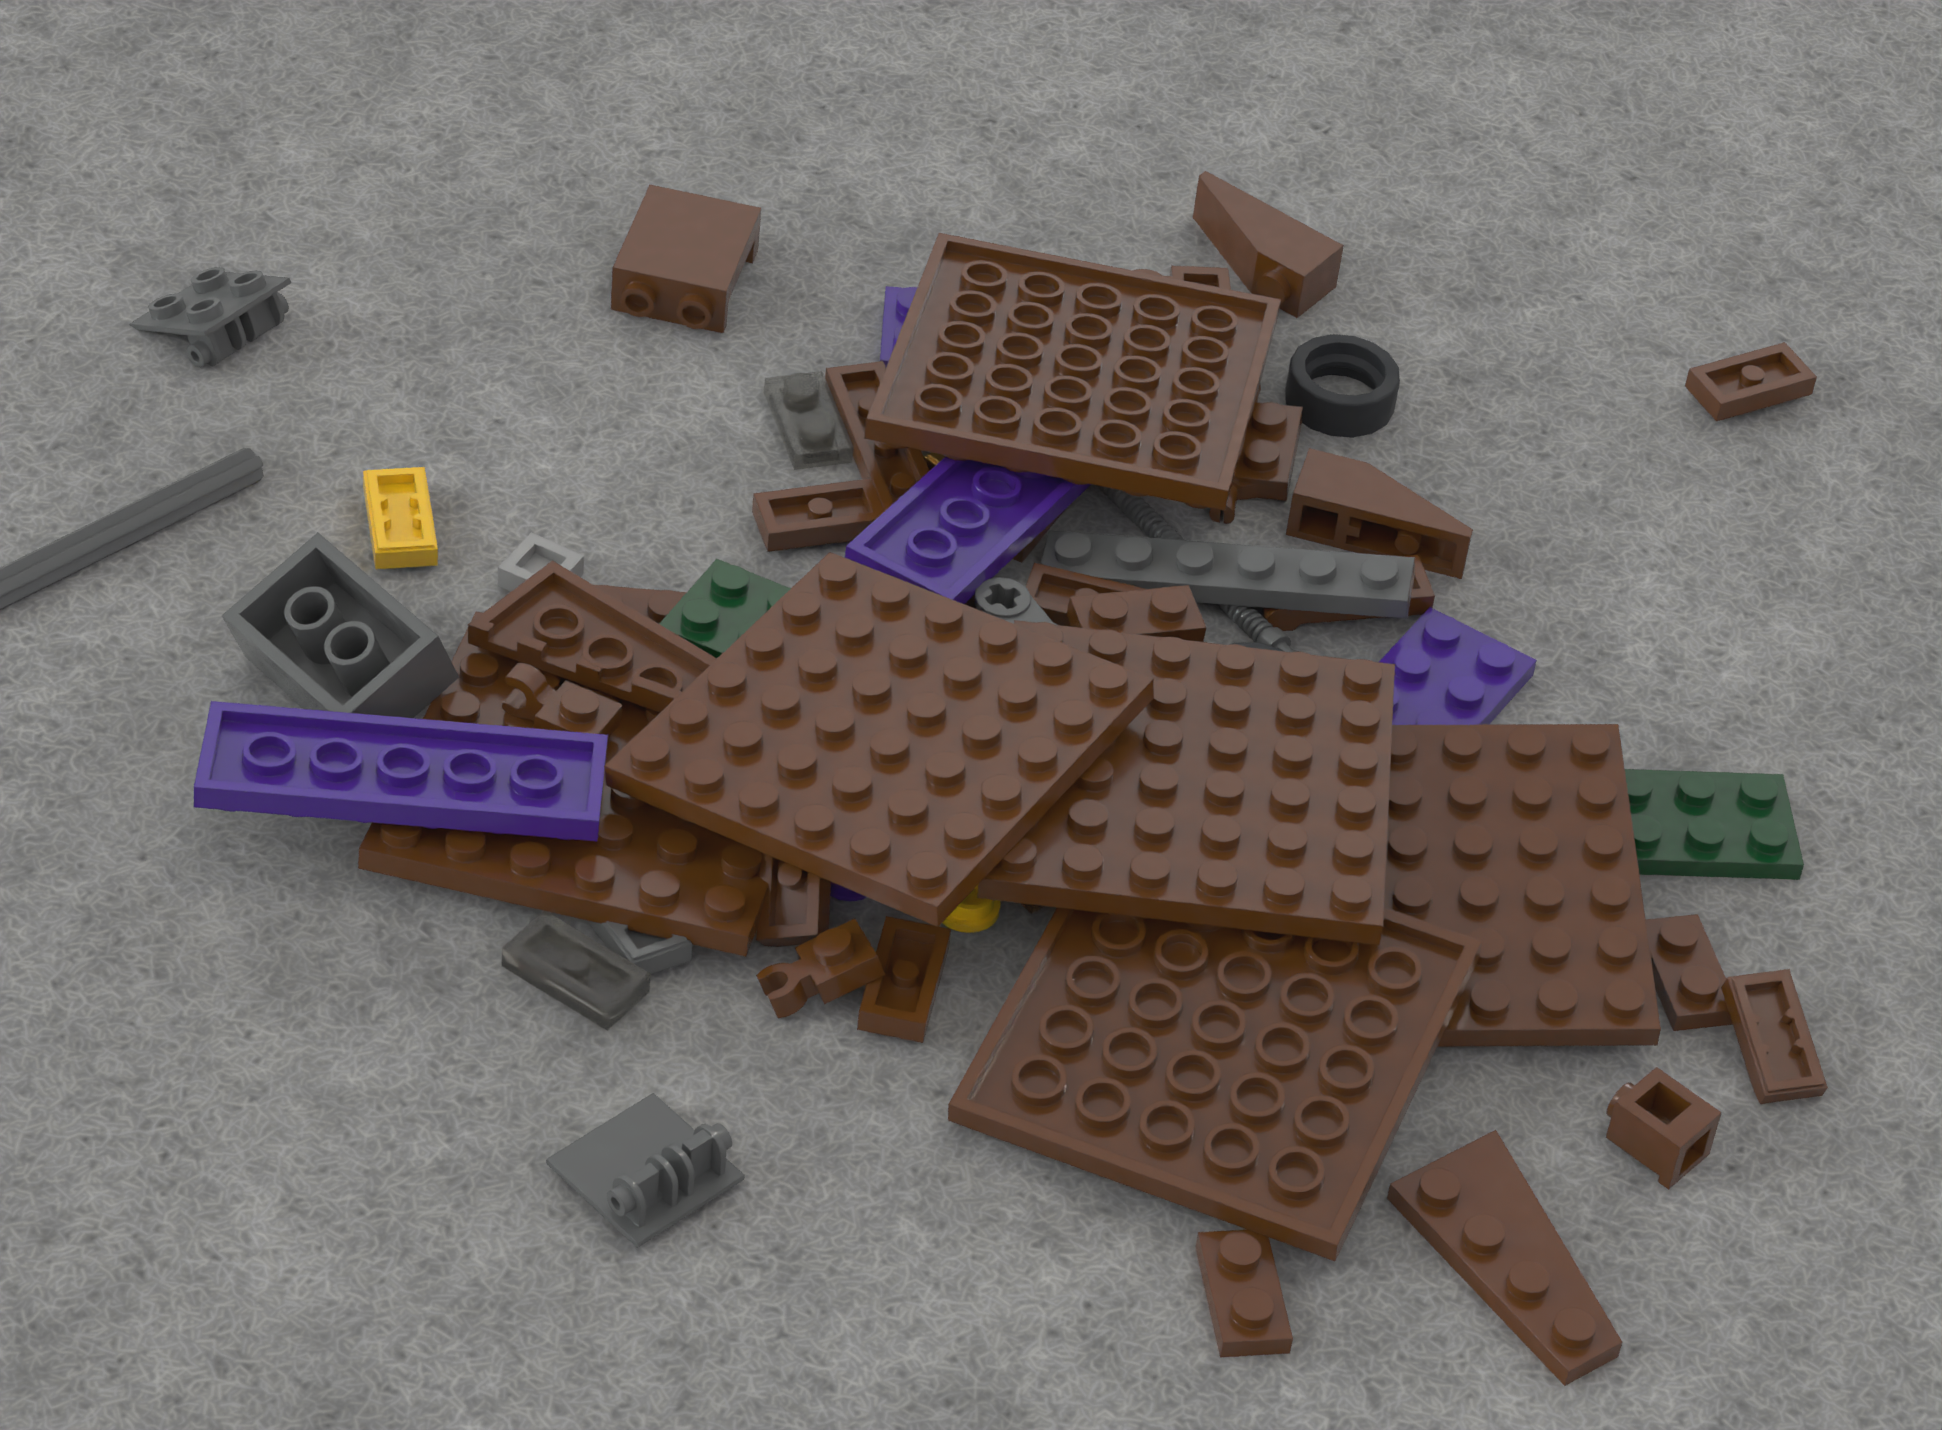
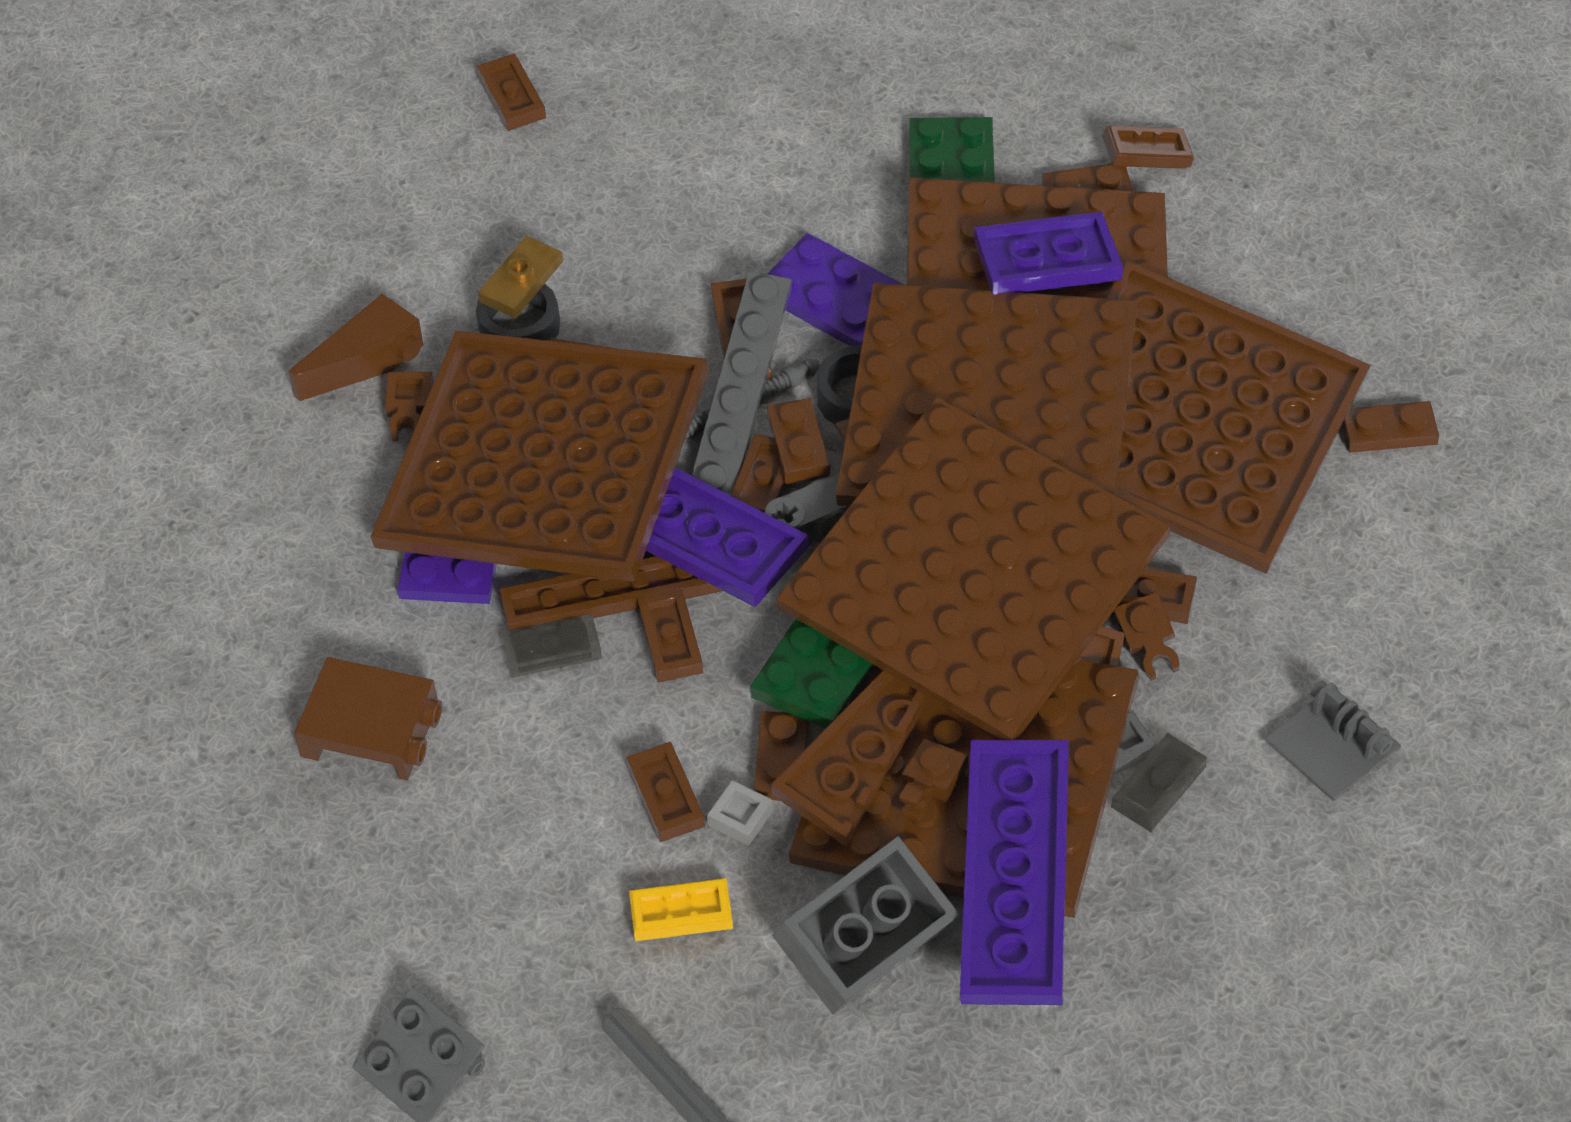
camera: 80 degrees left, 10 degrees up
(577, 505) = (665, 791): none -> reddish brown plate
(1370, 513) = (664, 306): reddish brown slope -> none
(1386, 361) = (520, 277): none -> pearl gold plate
(1474, 846) = (1048, 253): none -> dark purple plate
(1506, 1249) = (1340, 293): reddish brown wing -> none
(1662, 1125) = (1229, 211): reddish brown brick -> none

